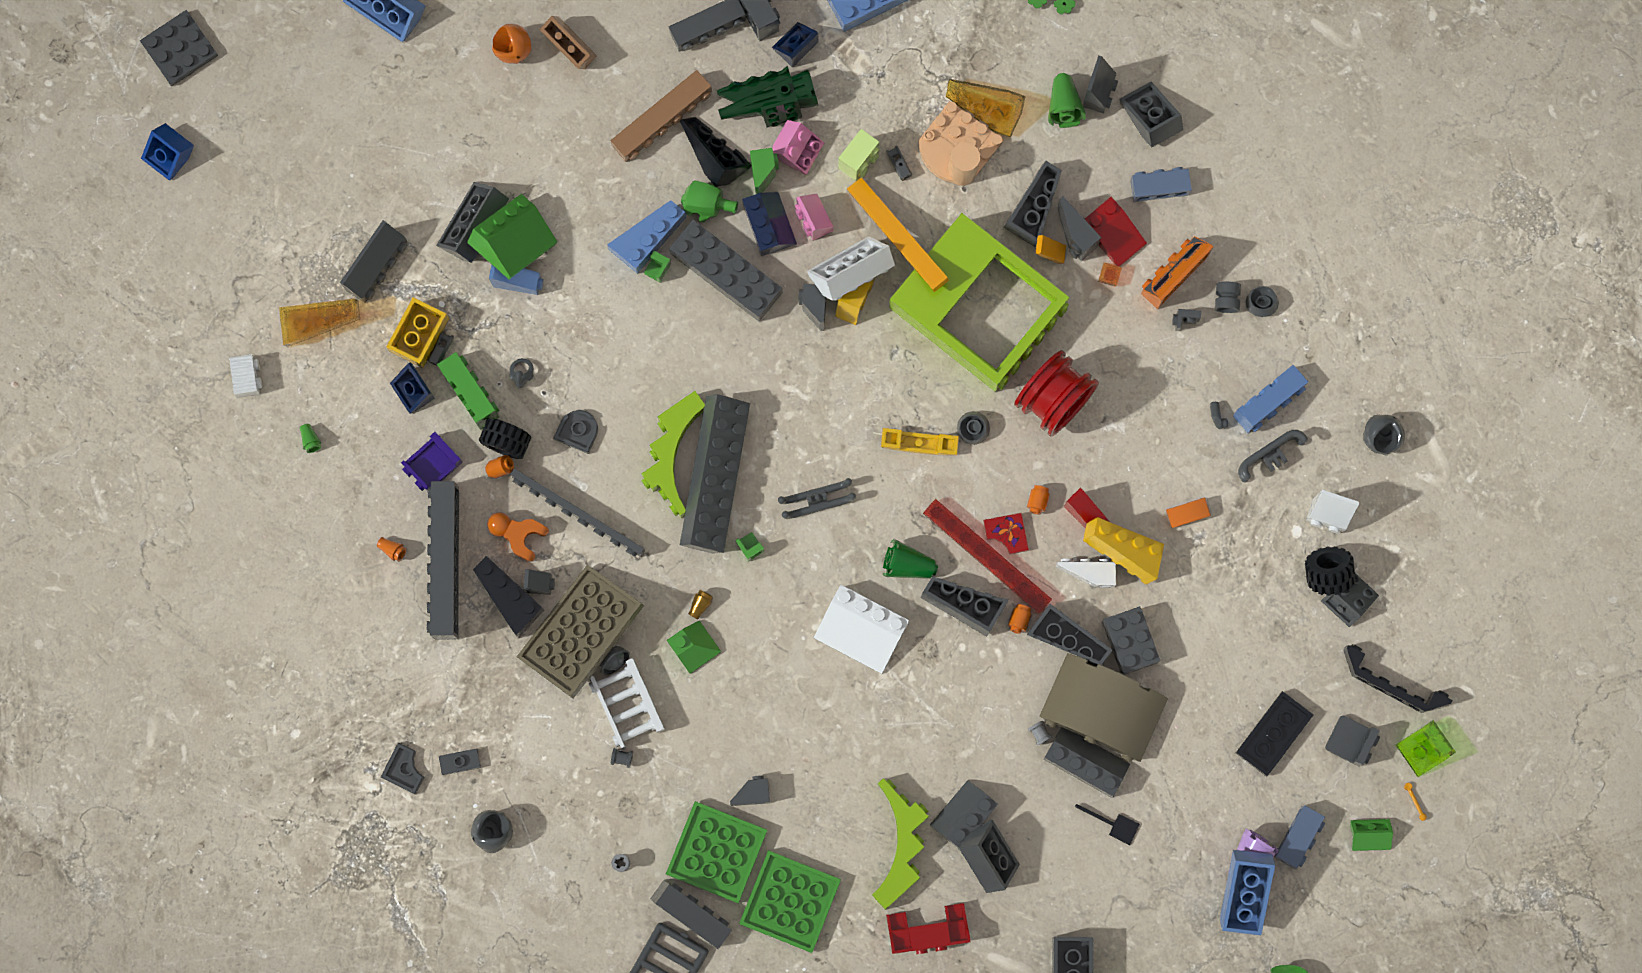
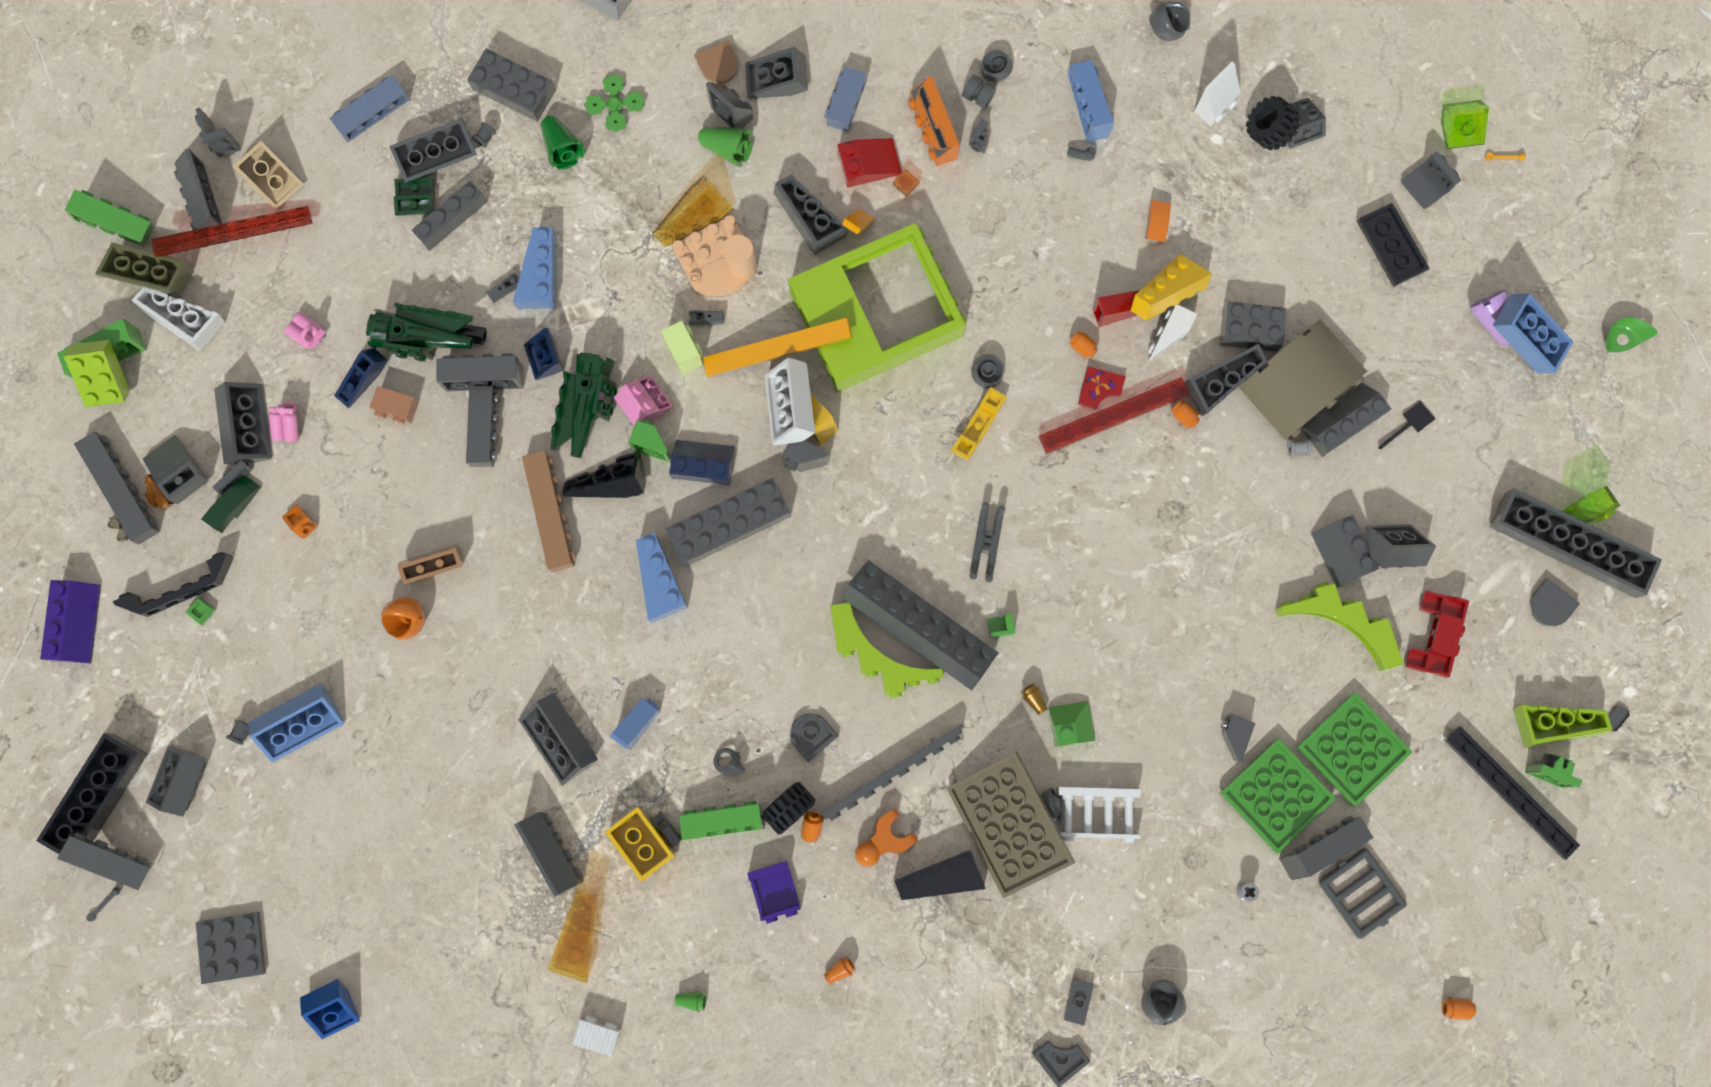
camera: 65 degrees left, 0 degrees up
(411, 389) = (692, 876): dark blue slope -> none
(443, 560) = (879, 924): dark grey brick -> none
(513, 237) = (595, 706): bright green slope -> none
(538, 582) = (943, 841): dark grey slope -> none
(621, 757) = (1147, 843): dark grey bush -> none
(658, 266) = (691, 585): bright green panel -> none
(705, 201) = (652, 509): bright green piece -> none
(814, 216) = (718, 417): bright pink slope -> none
(861, 629) = (1128, 561): white slope -> none
(906, 562) = (1086, 490): green cone -> none
(965, 604) = (1153, 454): dark grey wedge -> none
(1056, 393) = (999, 277): red wheel -> none
(1079, 234) = (853, 190): dark grey slope -> none
(1138, 58) = (718, 63): none -> medium nougat tile
(1271, 453) = (1139, 125): dark grey piece -> none
(1300, 837) = (1495, 266): sand blue brick -> none
(1354, 658) = (1360, 145): black slope -> none
(1371, 834) = (1519, 206): bright green panel -> none

